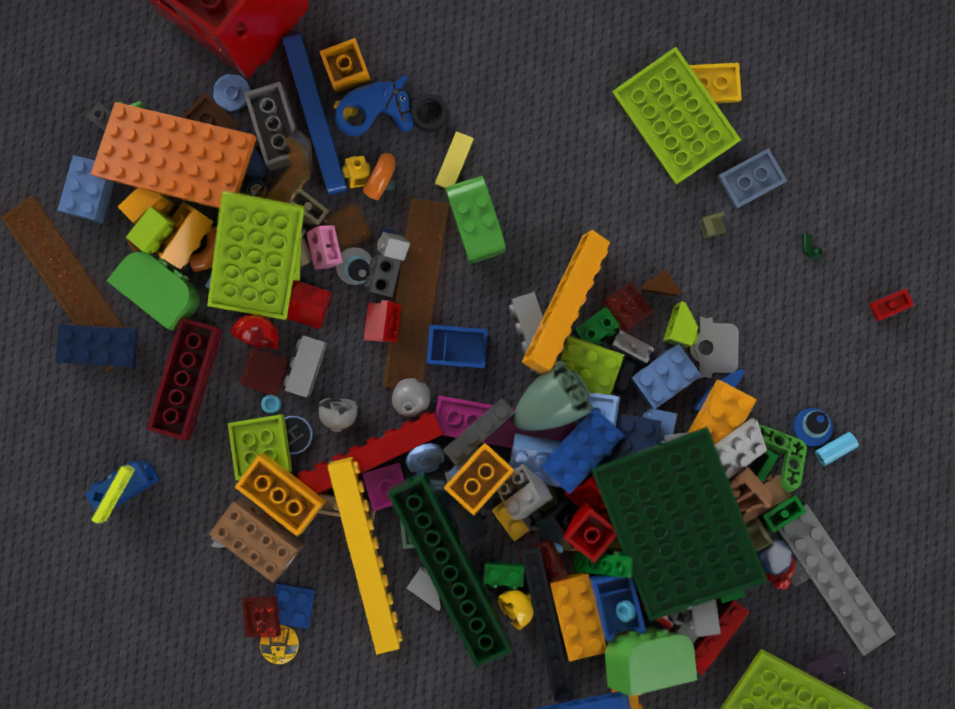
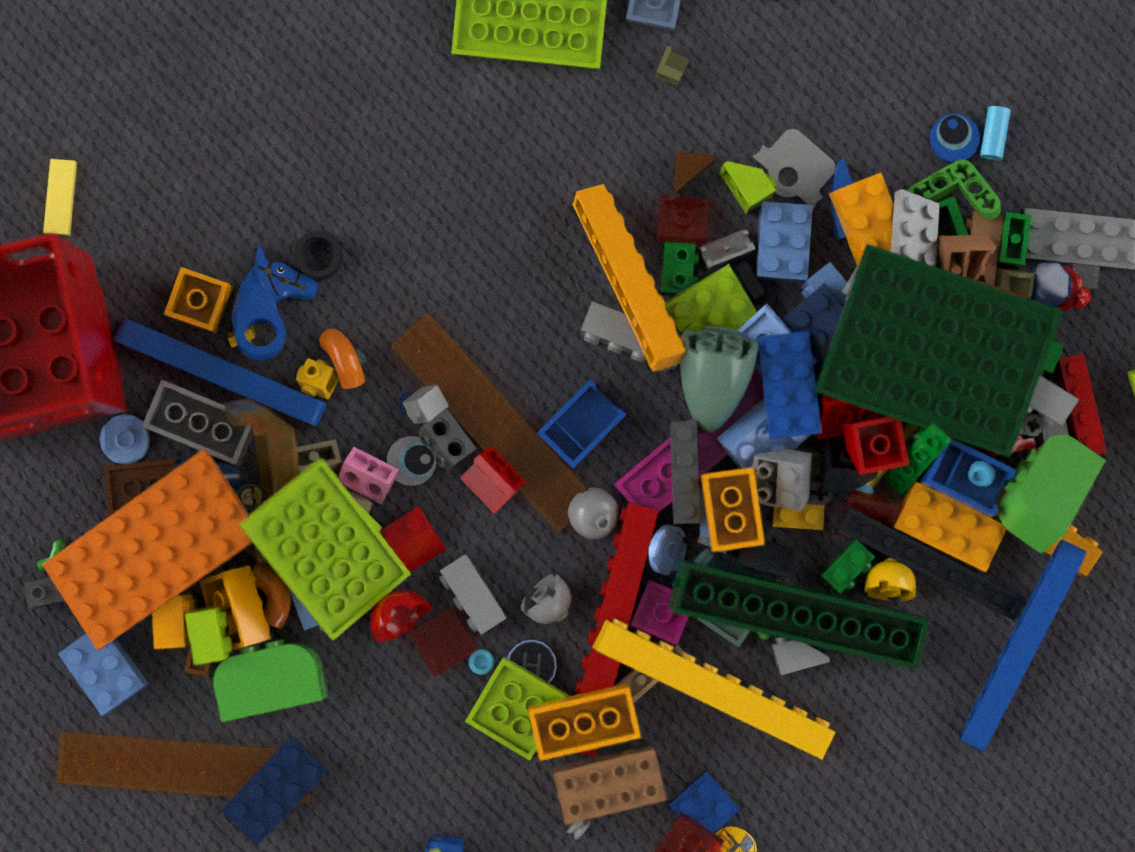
camera: 55 degrees left, 0 degrees up
(184, 379) = (384, 727): dark red brick -> none
(349, 226) = (366, 431): clear orange plate -> none
(454, 160) = (388, 271): light yellow tile -> none
(475, 219) = (468, 299): bright green brick -> none

